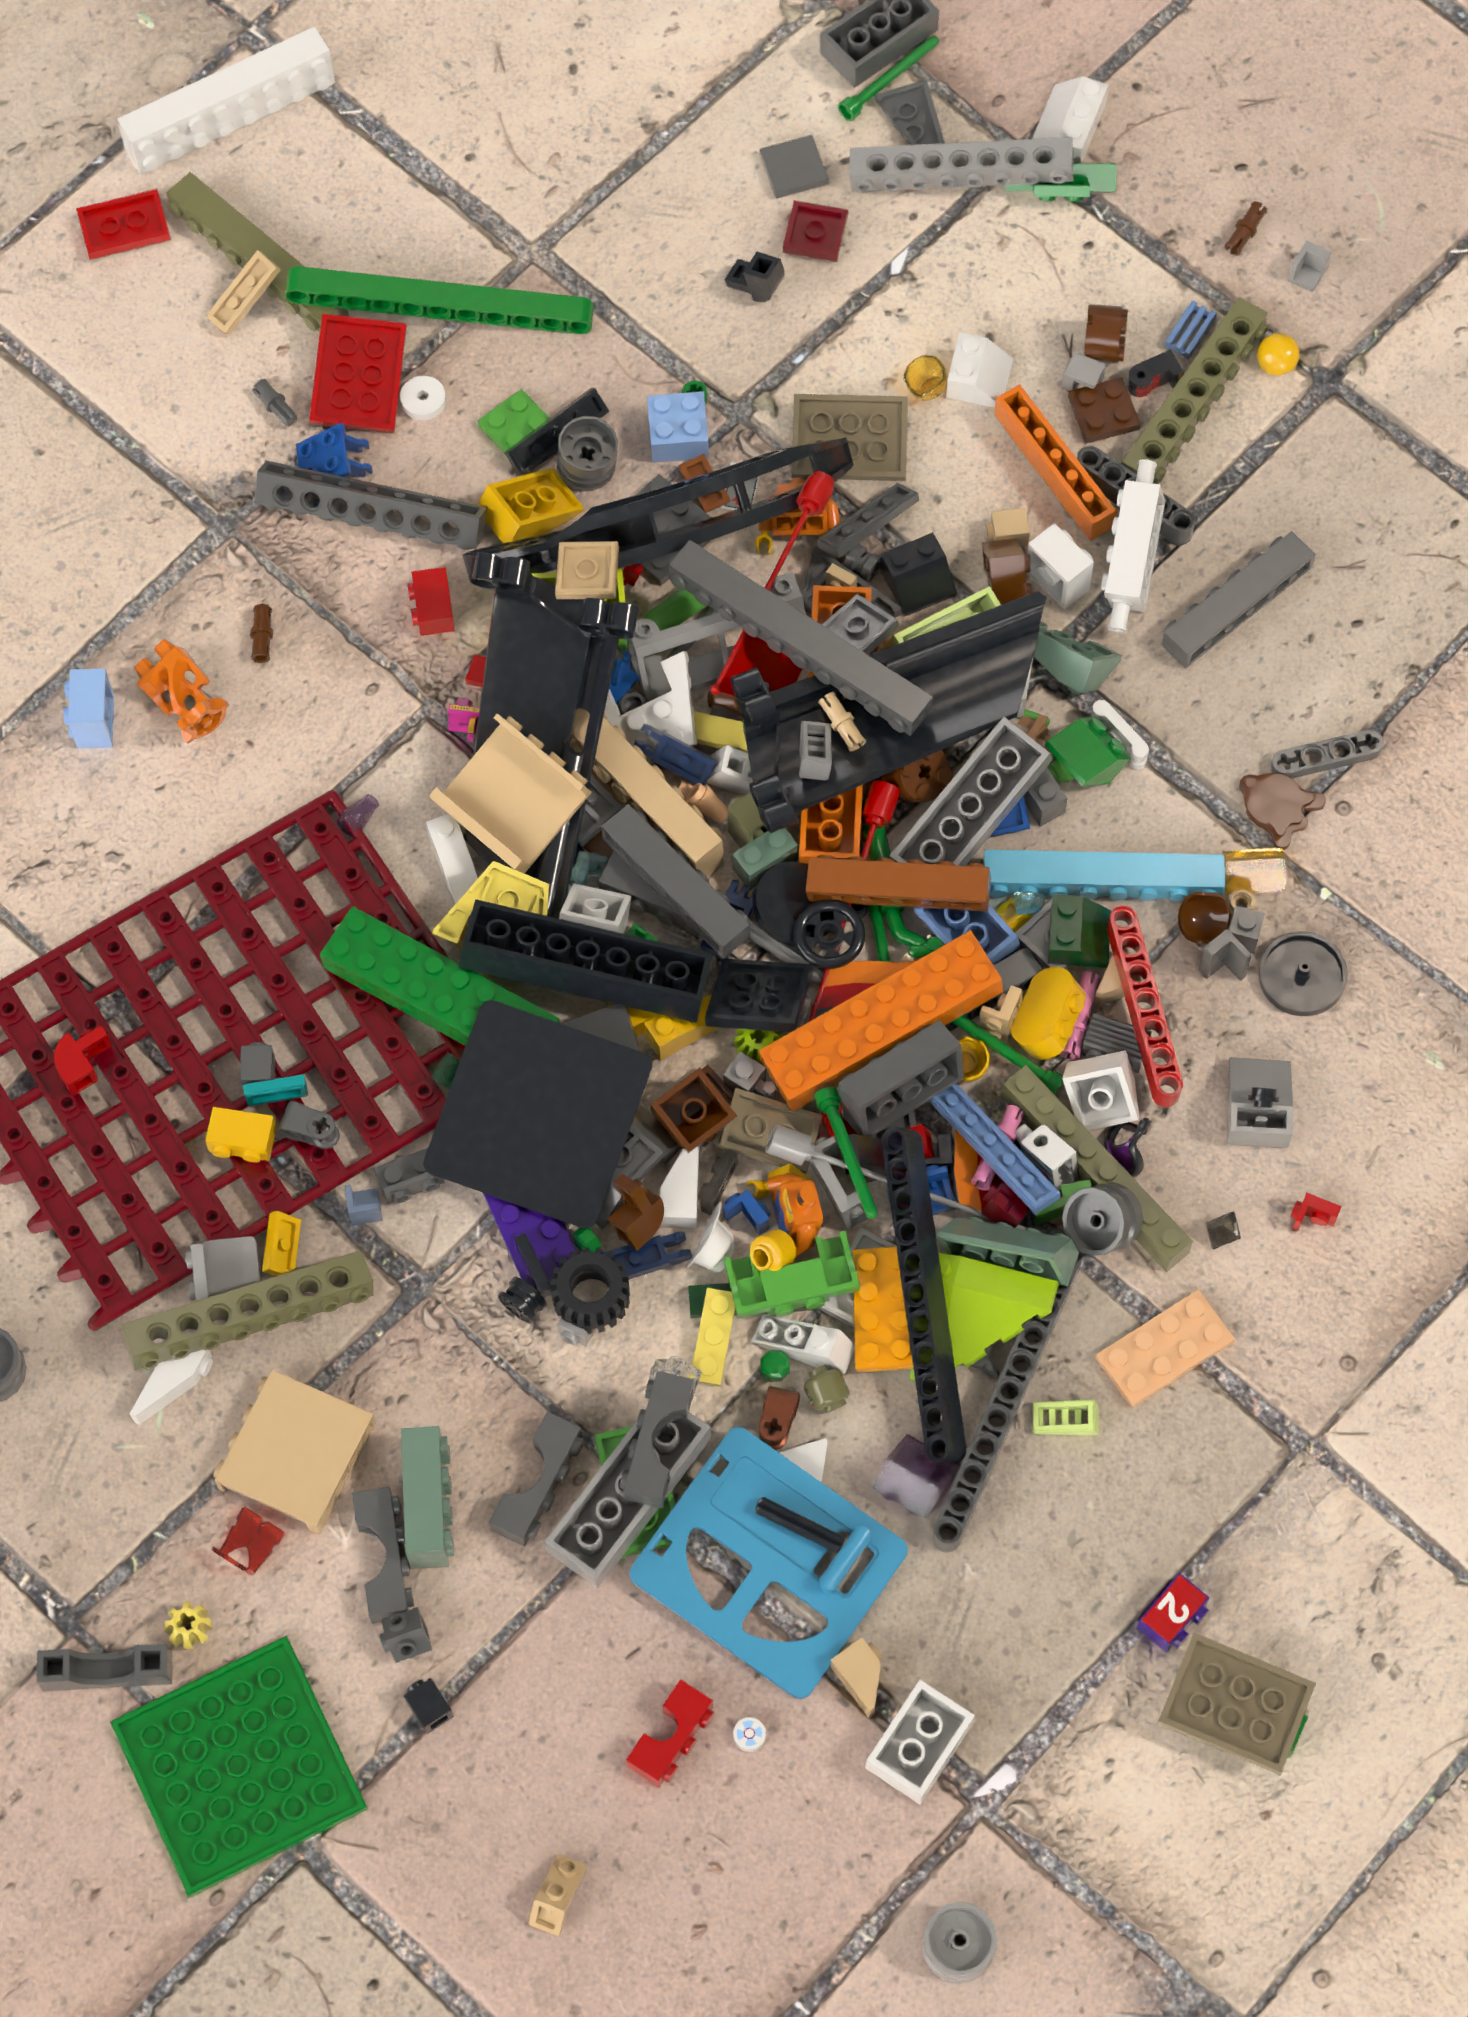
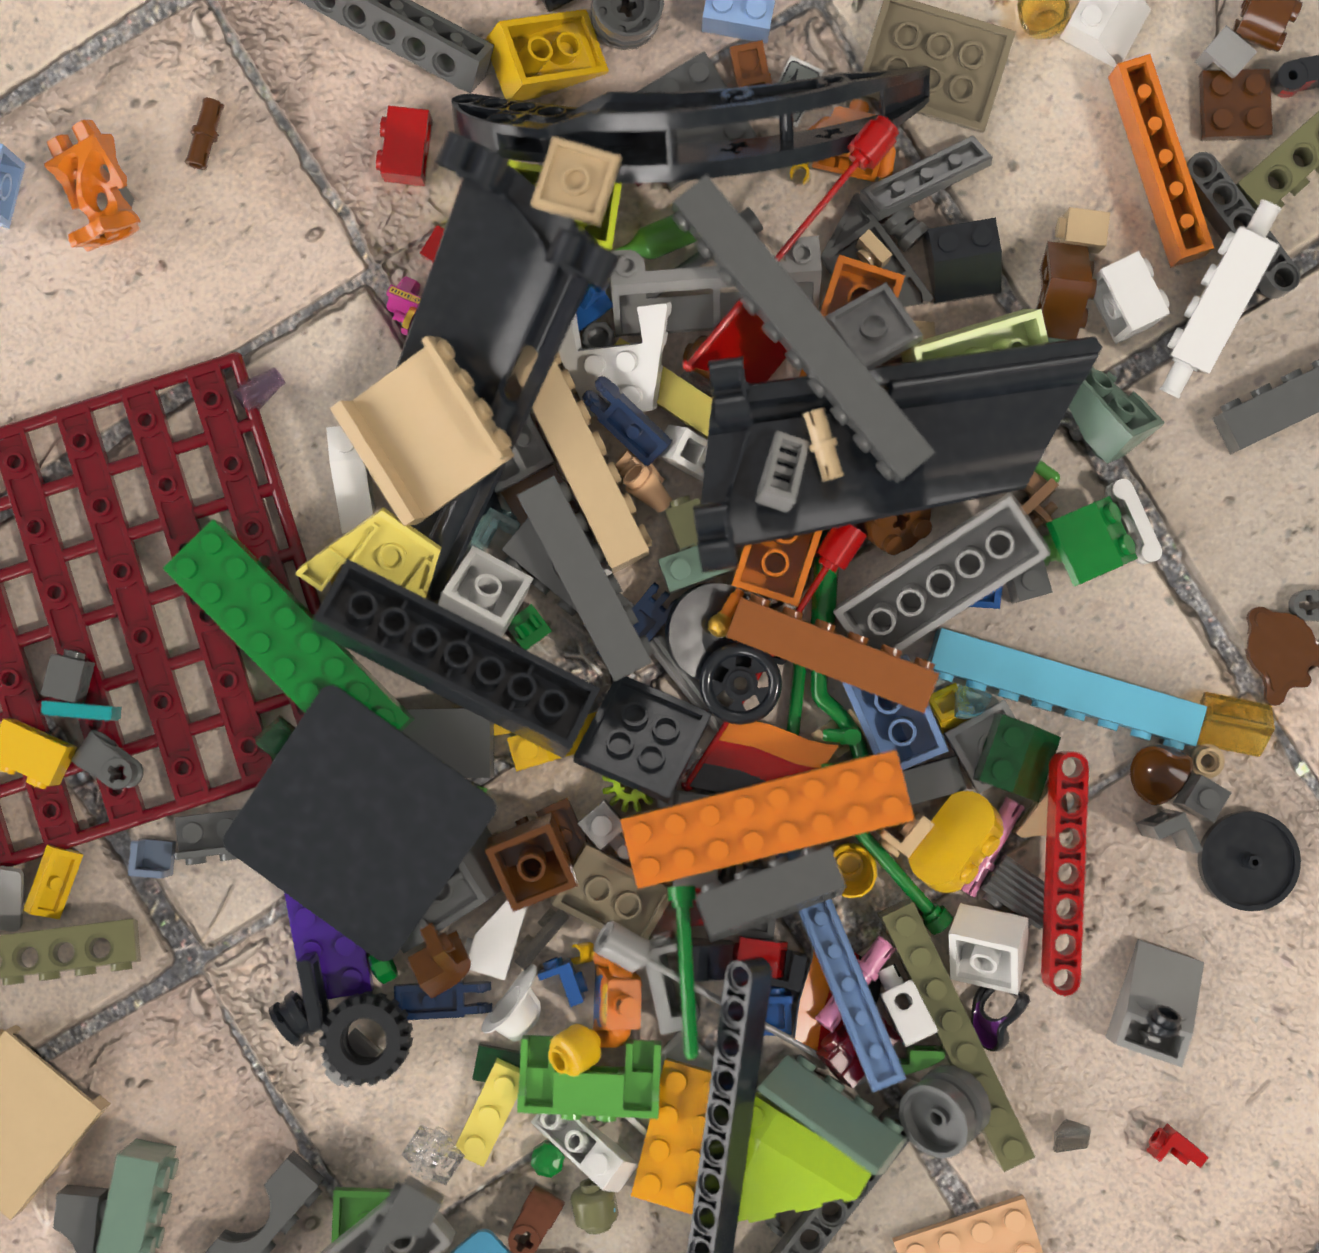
camera: 10 degrees right, 20 degrees up
(797, 890) = (720, 623): none -> piece

